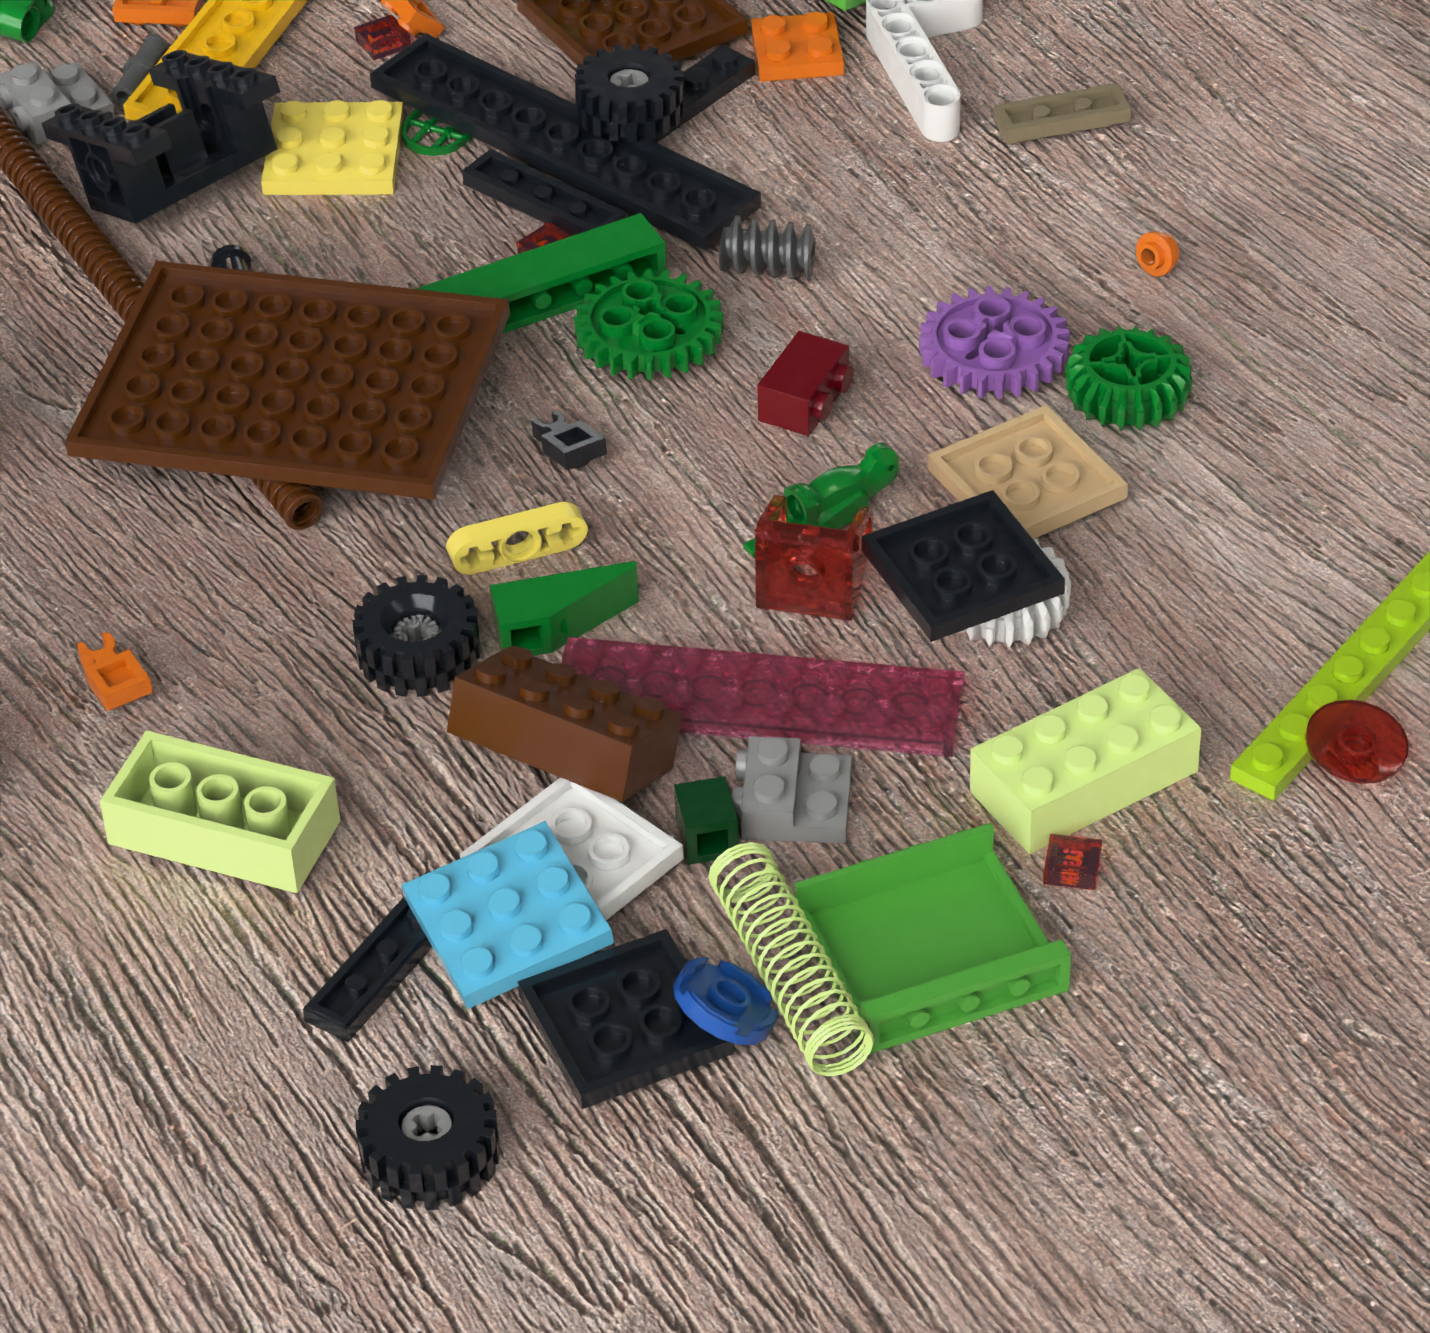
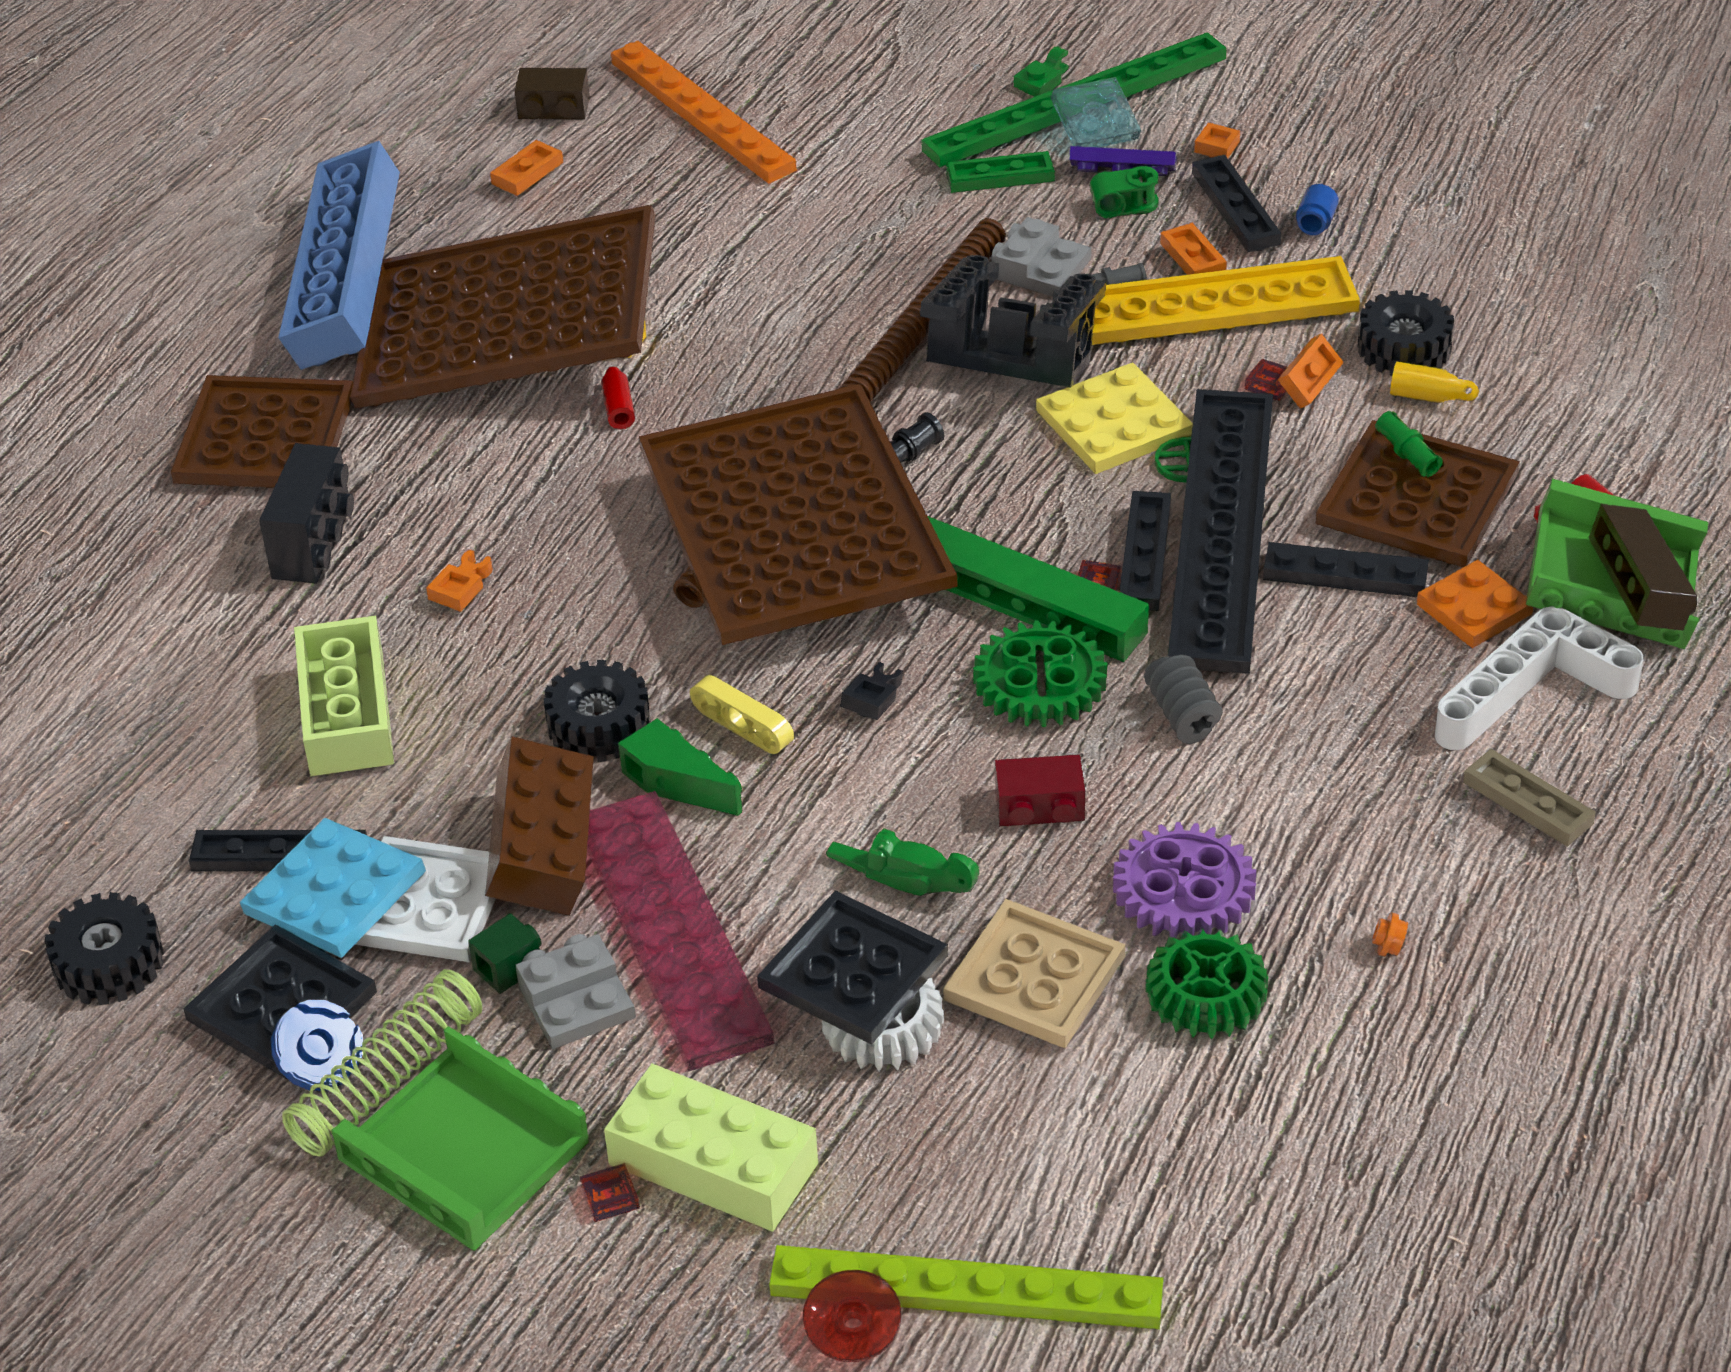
camera: 60 degrees right, 0 degrees up
(629, 93) = (1283, 549): black bush -> none
(829, 551) = (805, 860): clear red hose -> none

